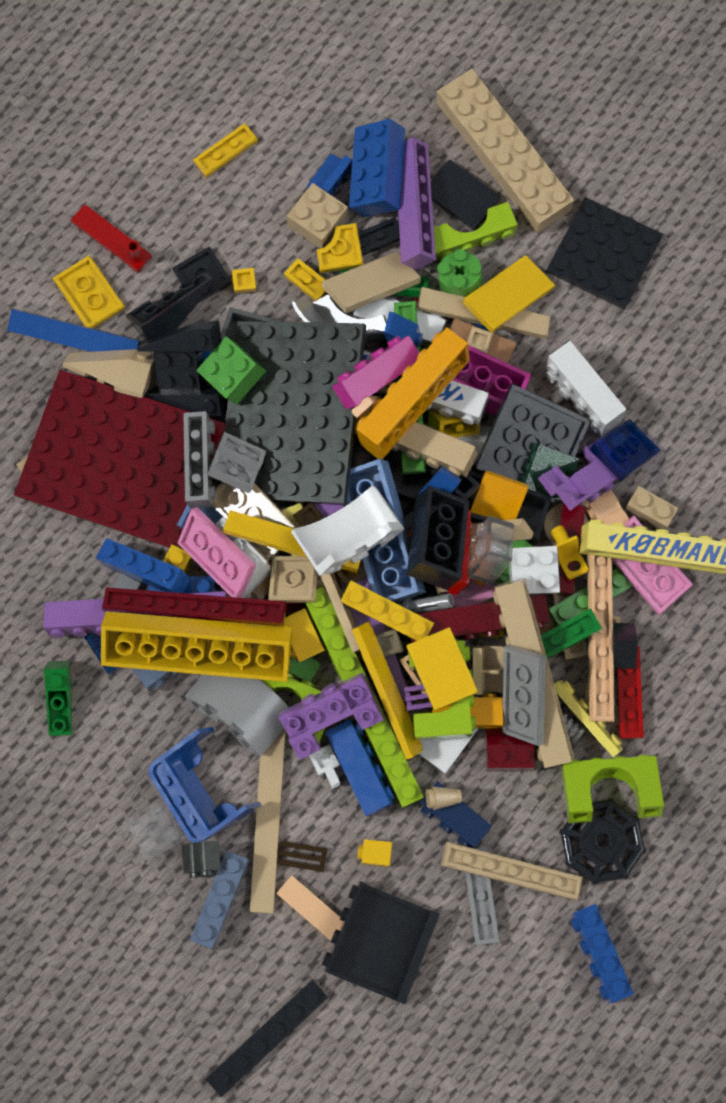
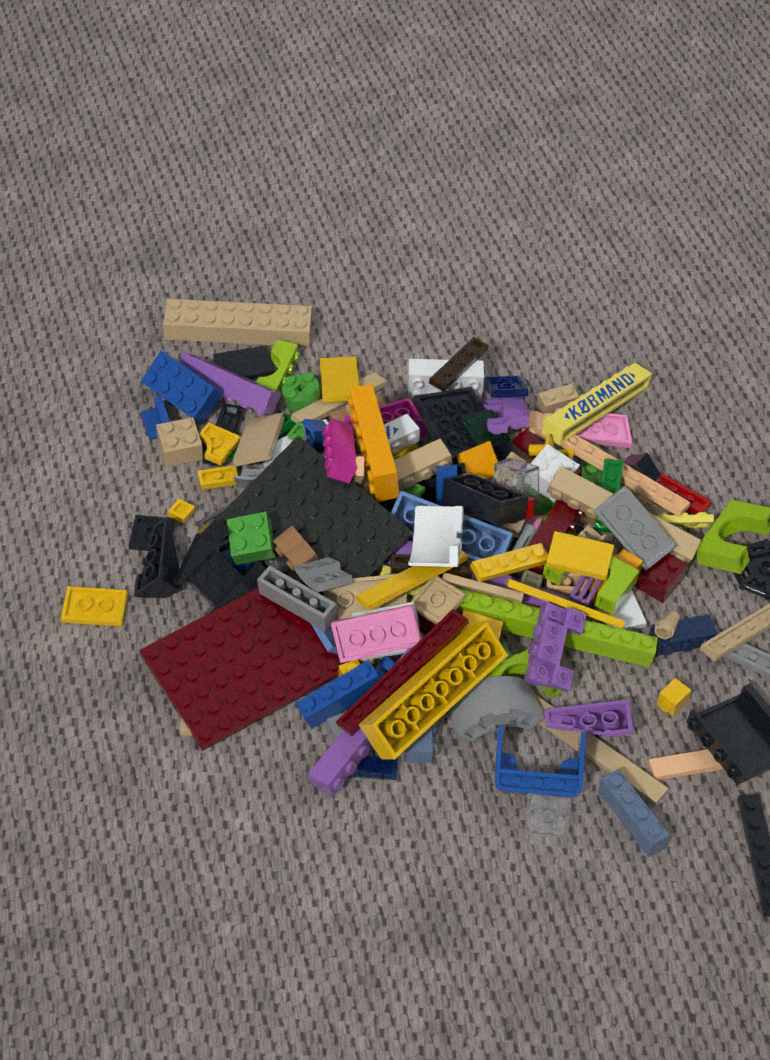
camera: 55 degrees left, 25 degrees down
(58, 697) = (385, 816): green slope -> none
(68, 333) = (117, 633): blue tile -> none
(111, 238) = (70, 566): red piece -> none
(124, 369) = (179, 610): tan wedge -> none
(201, 858) = (593, 799): pearl dark grey brick -> none
(225, 150) = (75, 464): yellow tile -> none
(248, 417) = (294, 548): none -> medium nougat brick
(282, 853) = (649, 735): dark brown tile -> none
(290, 807) = (601, 718): none -> medium lavender wedge
(325, 763) = (582, 686): white plate -> none
(360, 767) = (604, 665): blue brick -> none
(600, 391) = (458, 364): none -> dark brown tile
(604, 253) = (358, 322): black plate -> none

